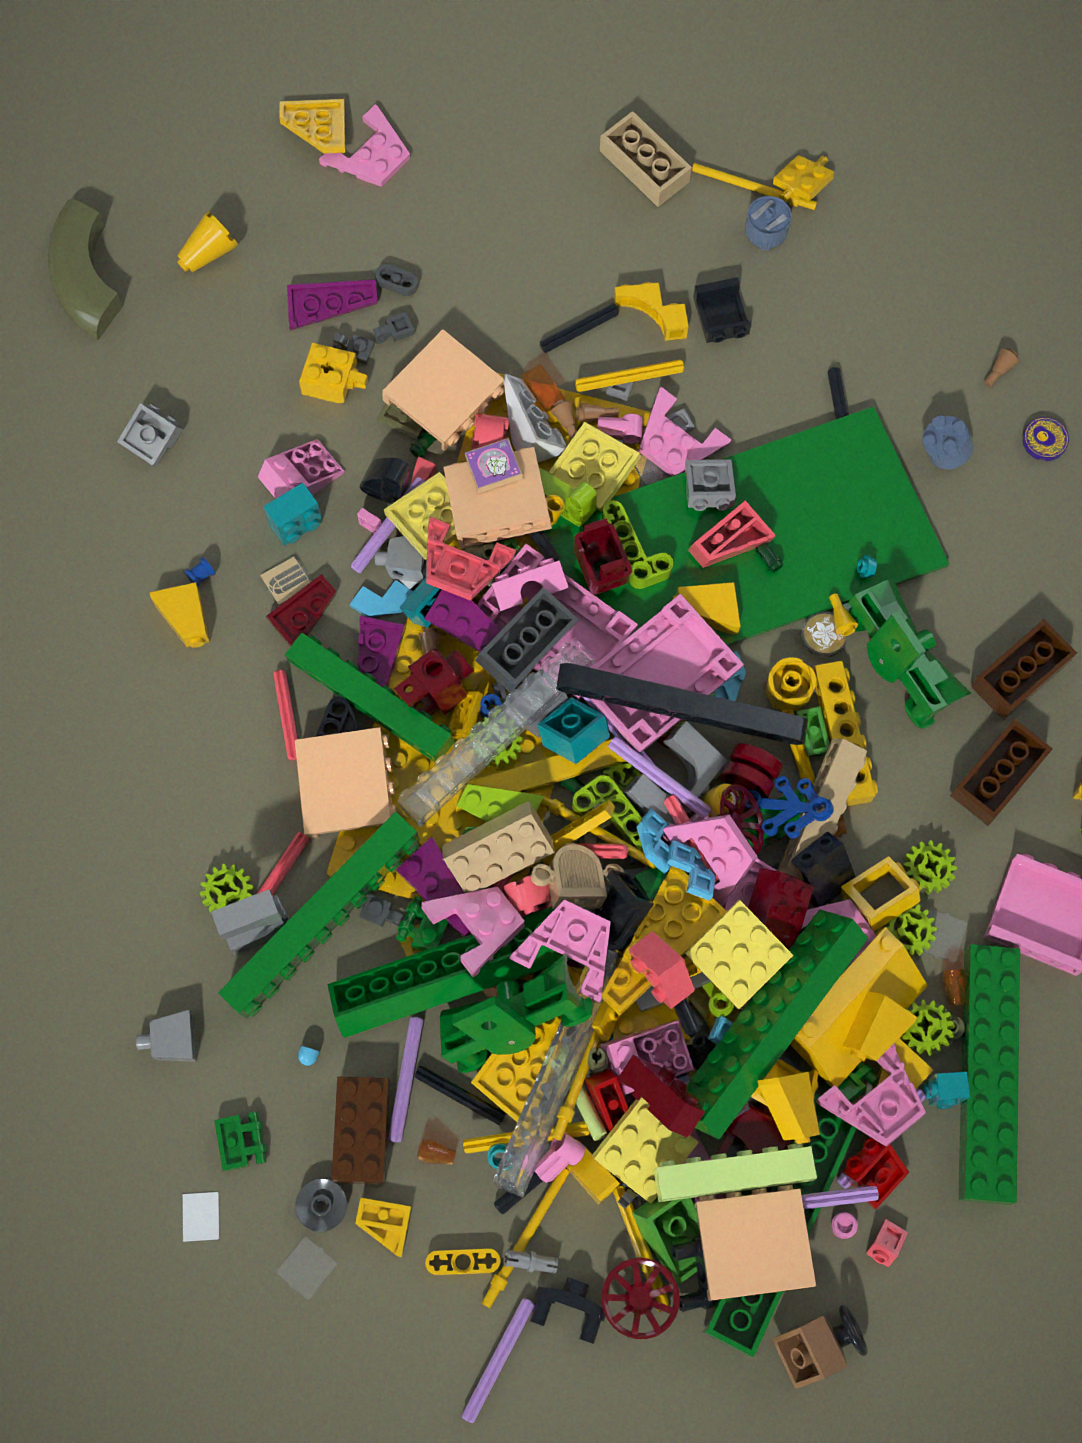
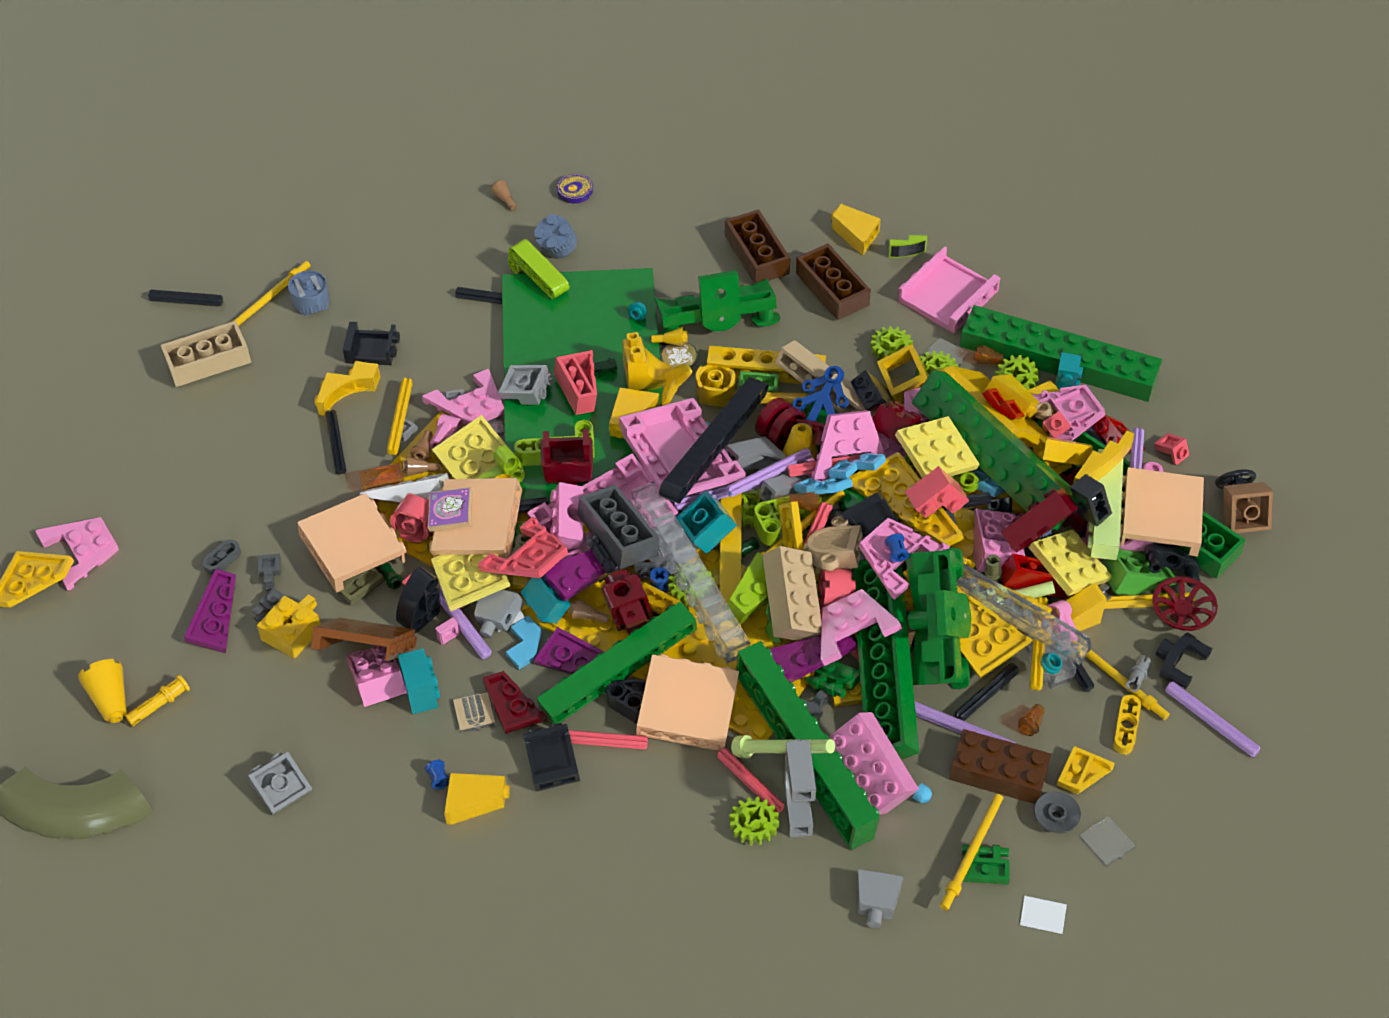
camera: 70 degrees left, 20 degrees down
(195, 1114) = (954, 886): none -> yellow bar
(222, 296) = (166, 694): none -> yellow pin
(244, 672) = (551, 757): none -> black panel
(310, 991) = (874, 762): none -> bright pink brick
(311, 857) = (744, 746): none -> yellowish green piece
(318, 444) = (396, 639): none -> dark orange panel
(488, 635) = (601, 554): none -> black axle
(565, 941) = (897, 547): none -> blue bush
(625, 828) = (807, 501): none -> clear orange cone
(705, 1149) = (1091, 500): none -> black brick
(722, 109) = (185, 297): none -> black axle
(772, 1149) = (1102, 463): none -> yellow slope
(775, 603) = (647, 372): none -> yellow hips
(803, 178) = (280, 261): yellow plate -> none
(844, 1088) = (1056, 425): none -> coral bracket
(846, 1020) = (1008, 408): none -> red slope
(876, 1066) = (1043, 411): none -> tan plate
(886, 440) = (527, 258): none -> lime beam

